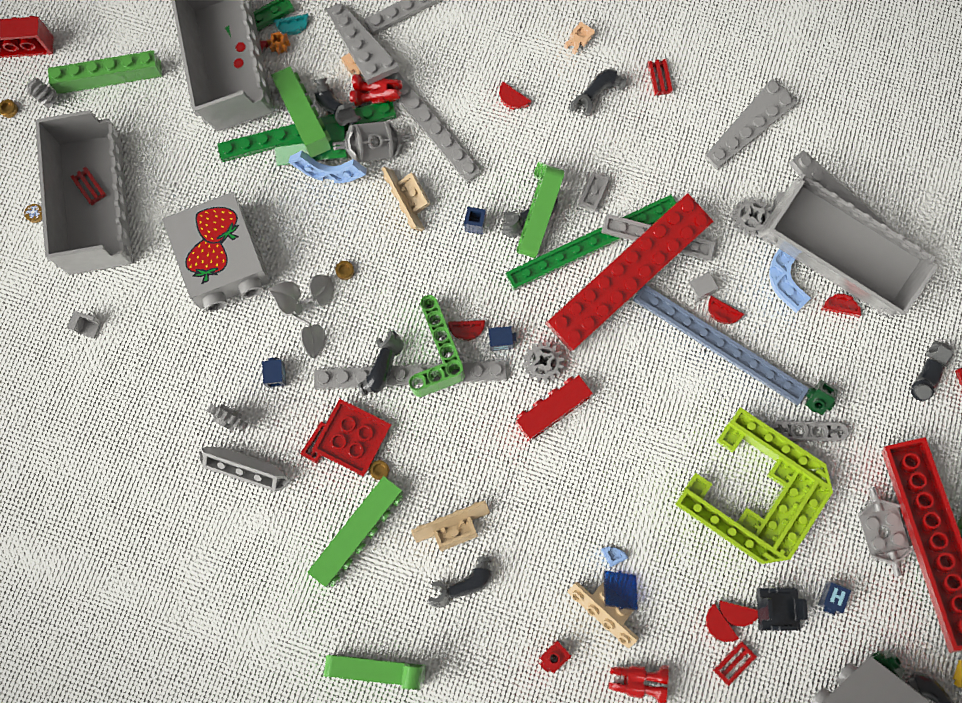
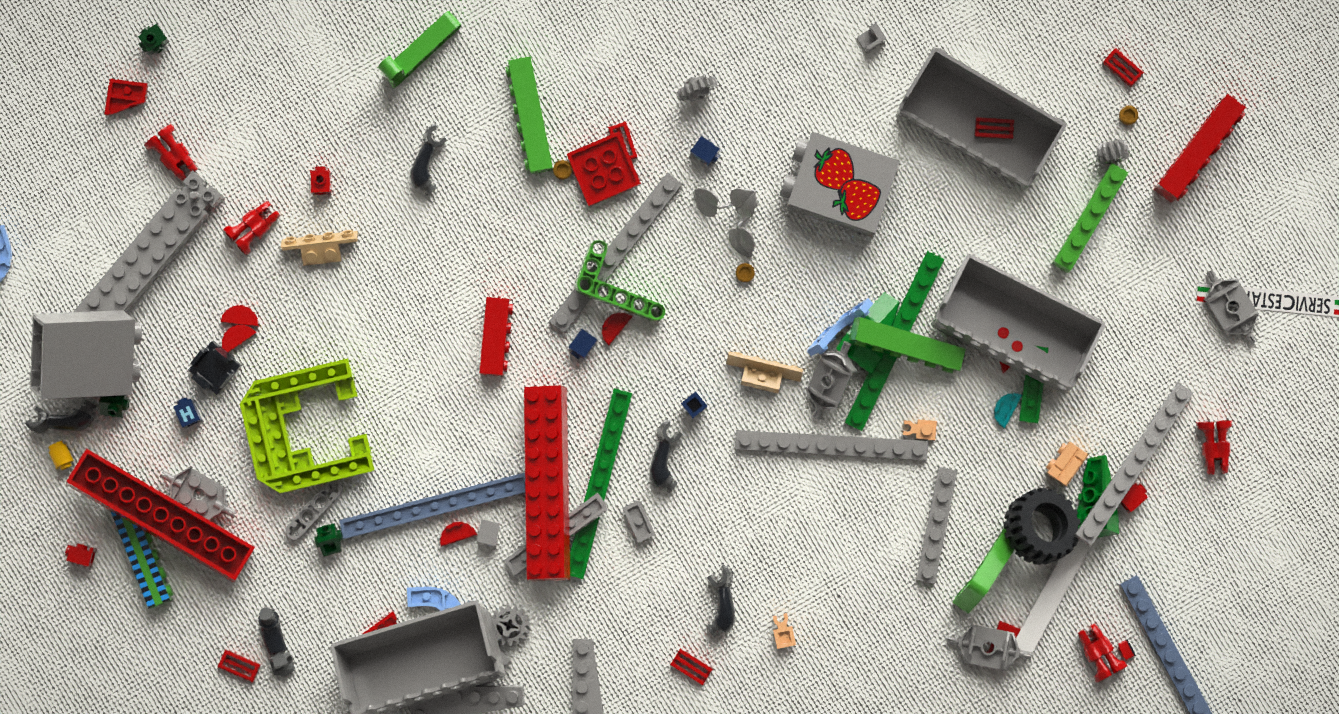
camera: 125 degrees right, 10 degrees up
(33, 213) = (1008, 68): pearl gold tile -> none
(243, 467) = (650, 70): light grey brick -> none
(278, 42) = (998, 377): orange gear -> none
(328, 101) = (901, 377): piece -> none
(366, 52) = (917, 442): light grey wing -> none
(379, 91) = (873, 424): red piece -> none
(381, 370) = (631, 227): black piece -> none
(453, 528) = (470, 187): tan bracket -> none
(511, 98) = (778, 529): red tile -> none
(536, 366) = (528, 357): light grey gear -> none
(540, 209) = (658, 466): bright green beam -> none
(614, 555) = (352, 286): light blue tile -> none
(620, 590) = (324, 267): clear blue piece -> none
(724, 661) = (207, 301): red tile -> none

